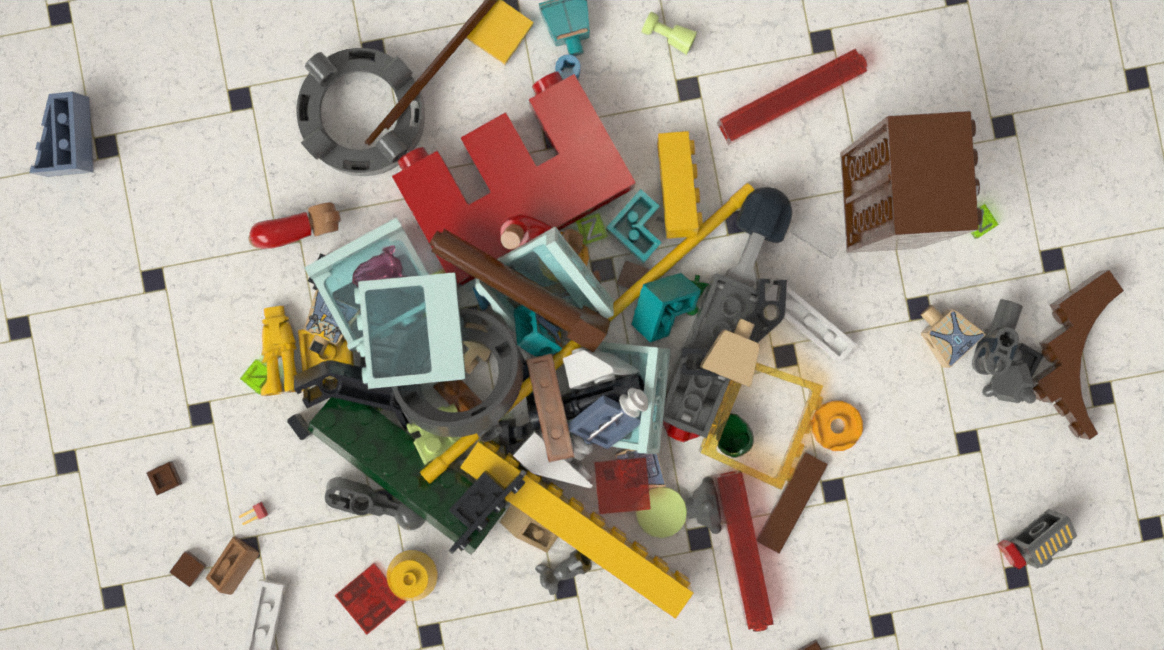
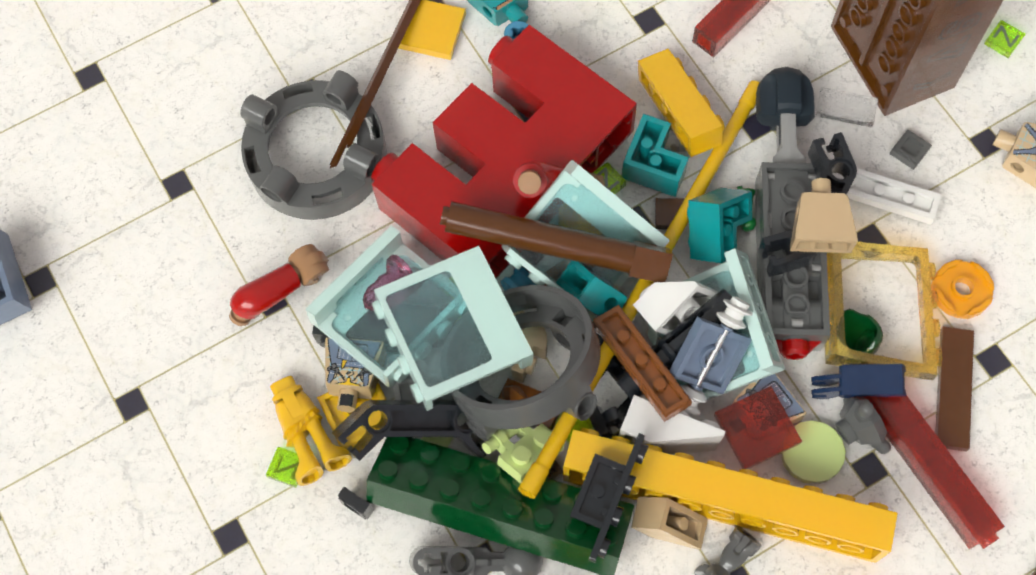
camera: 20 degrees left, 20 degrees down
(721, 479) = (862, 380): none -> dark blue arm
(853, 292) = (910, 149): none -> dark grey tile

